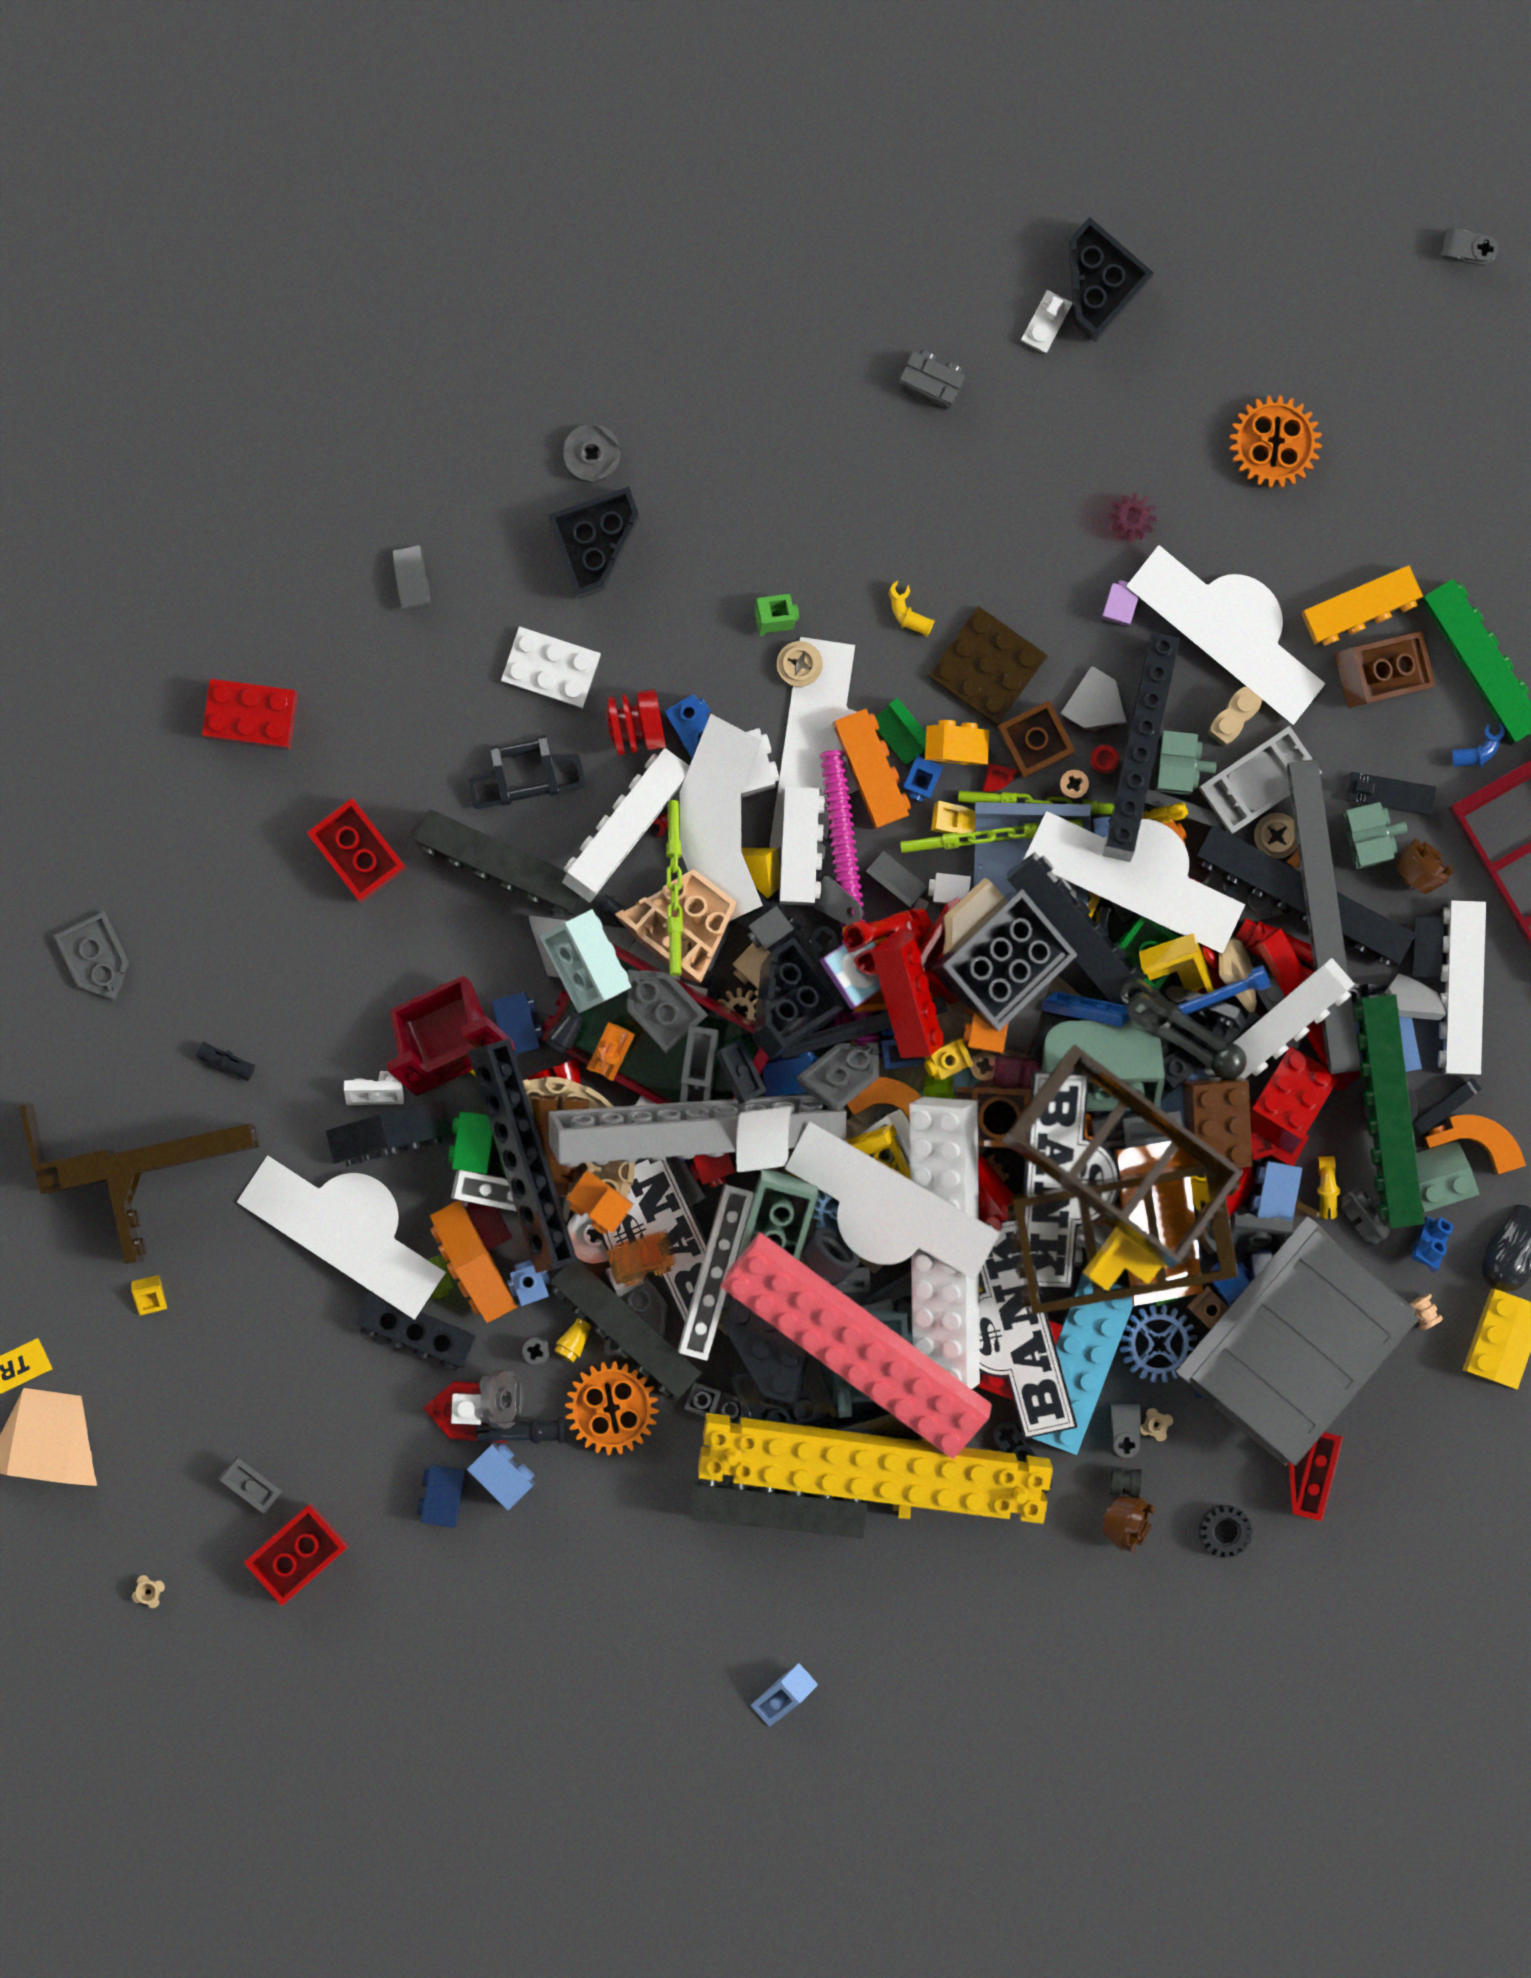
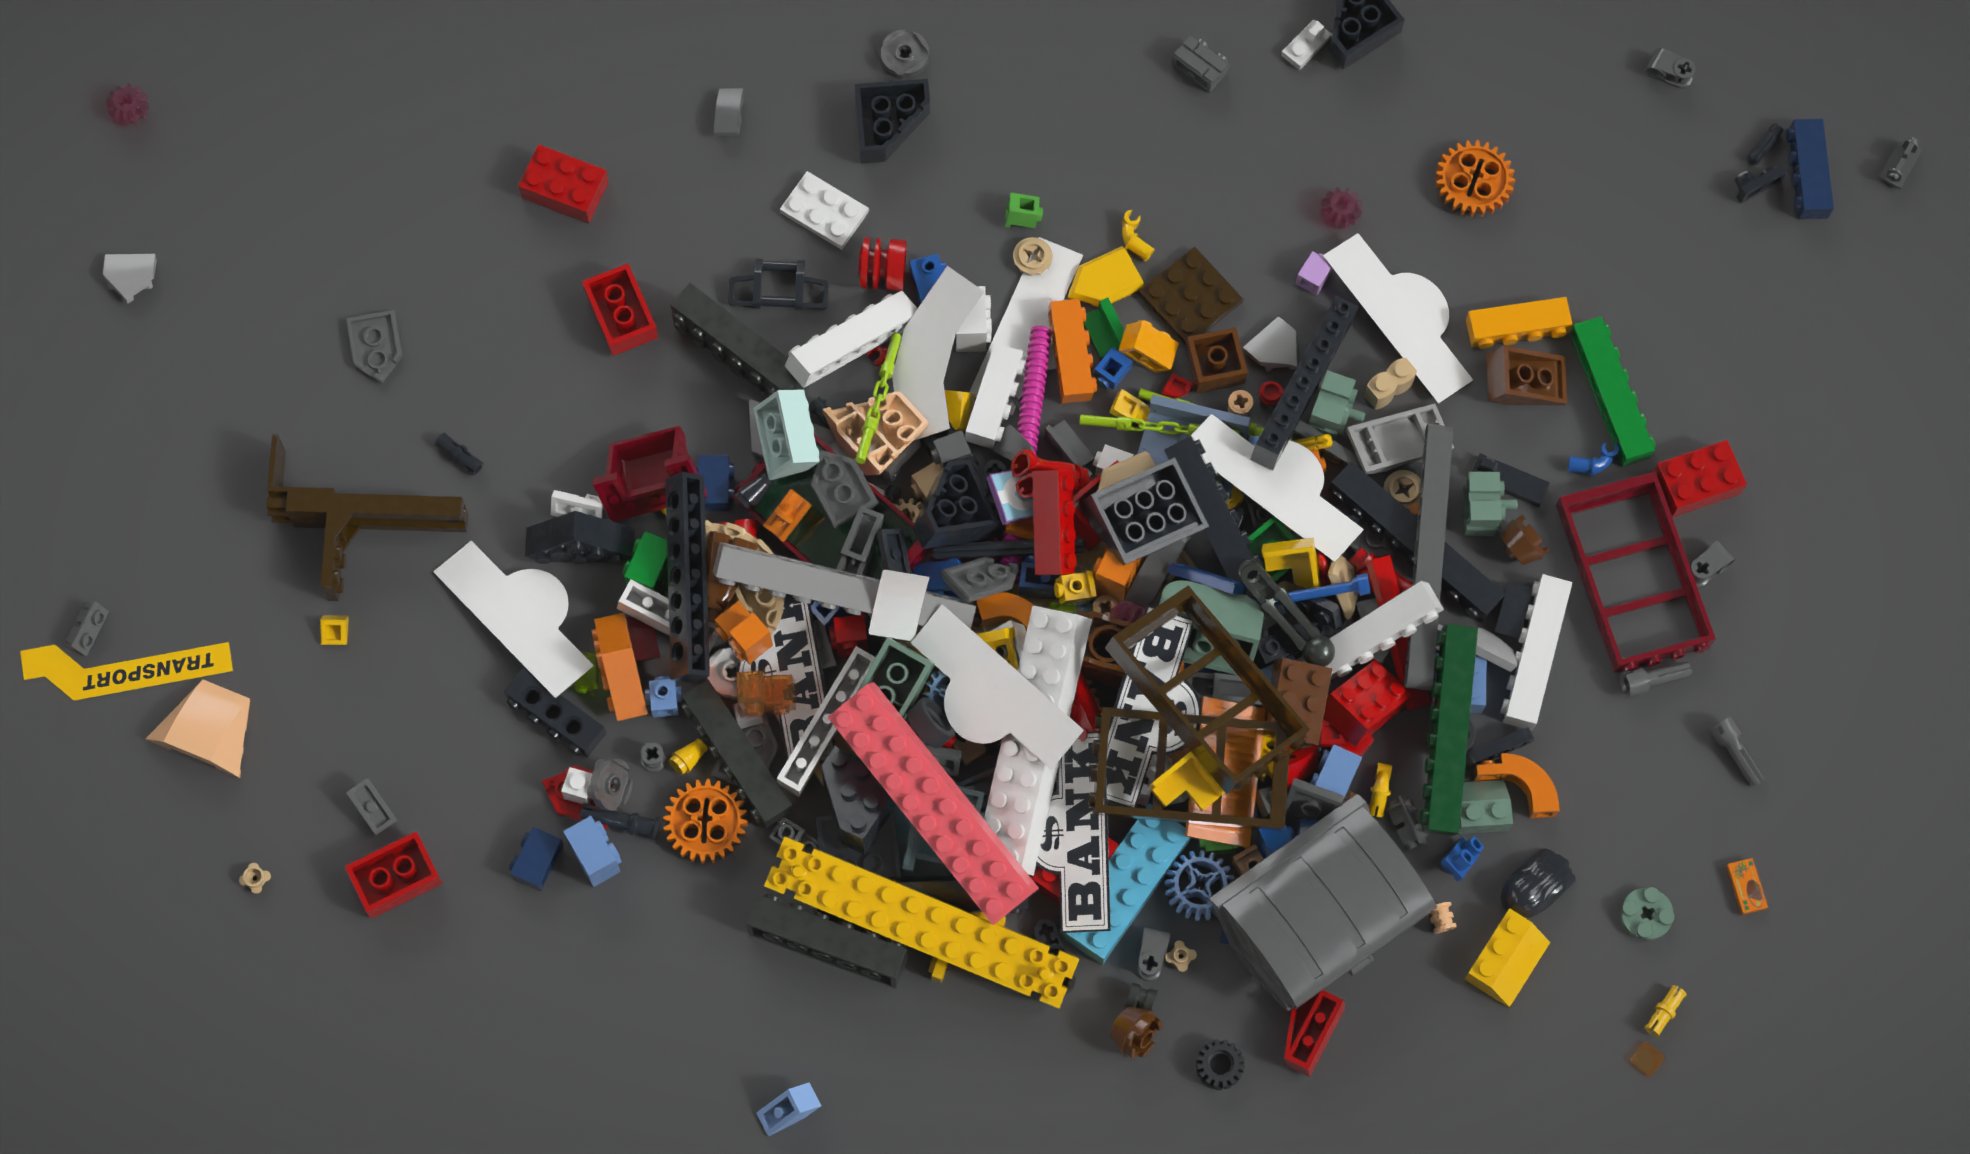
camera: 10 degrees right, 15 degrees down
(888, 669) = (1106, 277): none -> yellow tile

